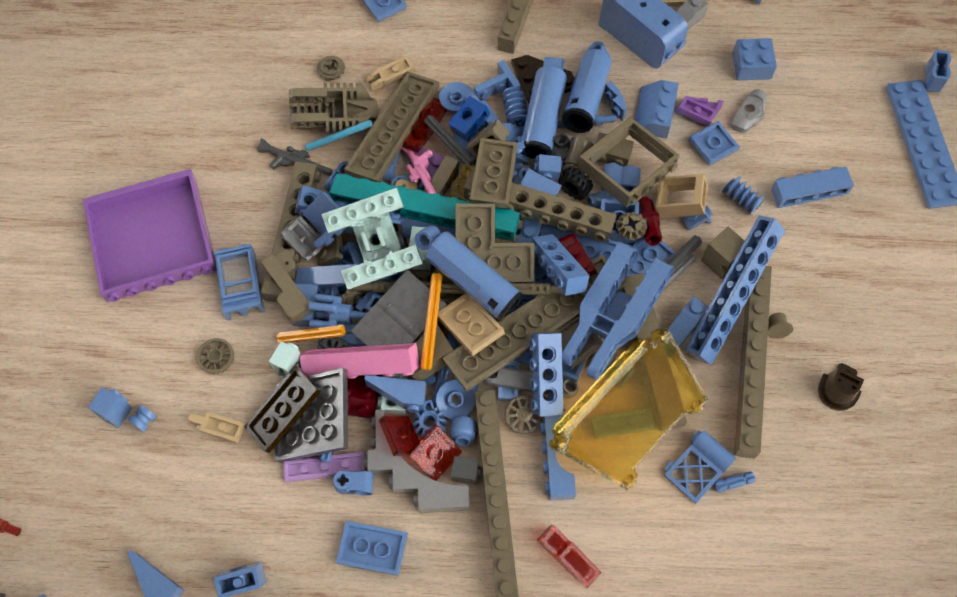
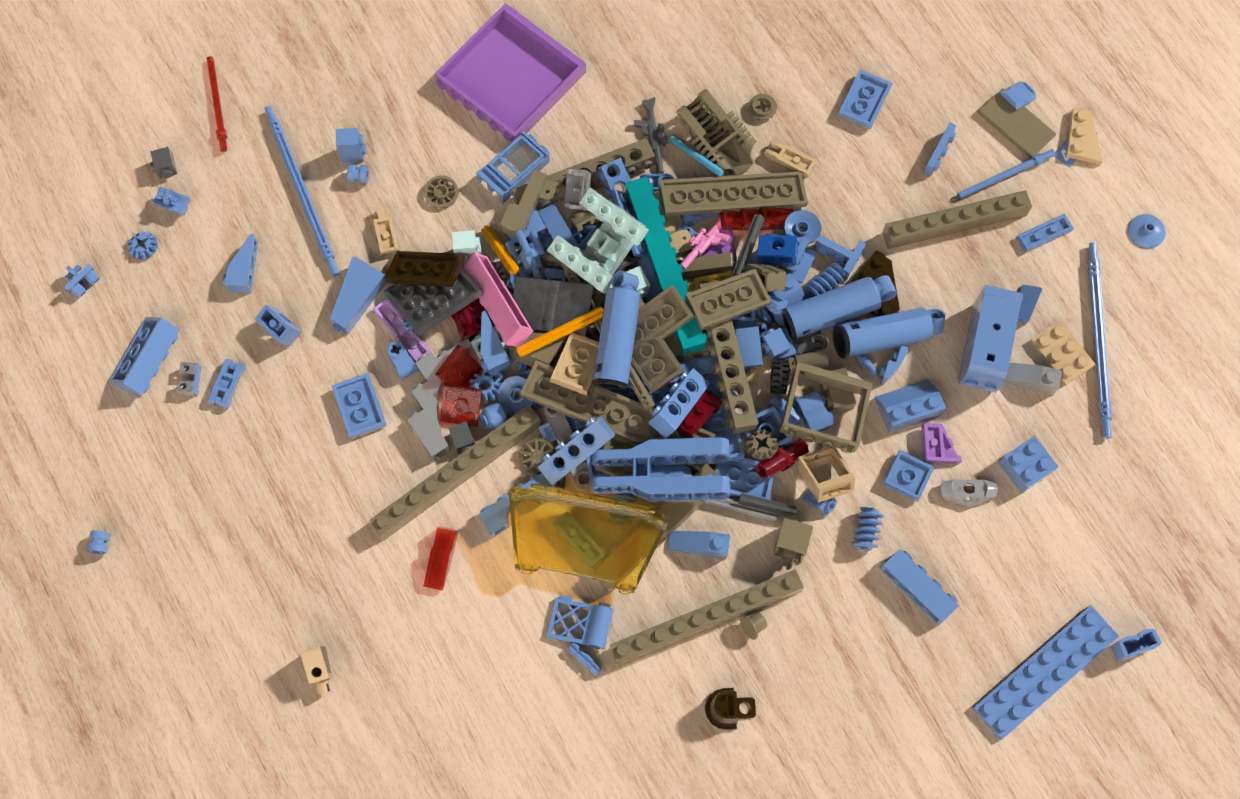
camera: 55 degrees right, 5 degrees up
(118, 480) = (302, 192): none -> medium blue axle
(258, 483) = (356, 294): none -> medium blue slope
(314, 212) = (604, 185): medium blue bracket -> none
(735, 289) = (756, 565): medium blue brick -> none

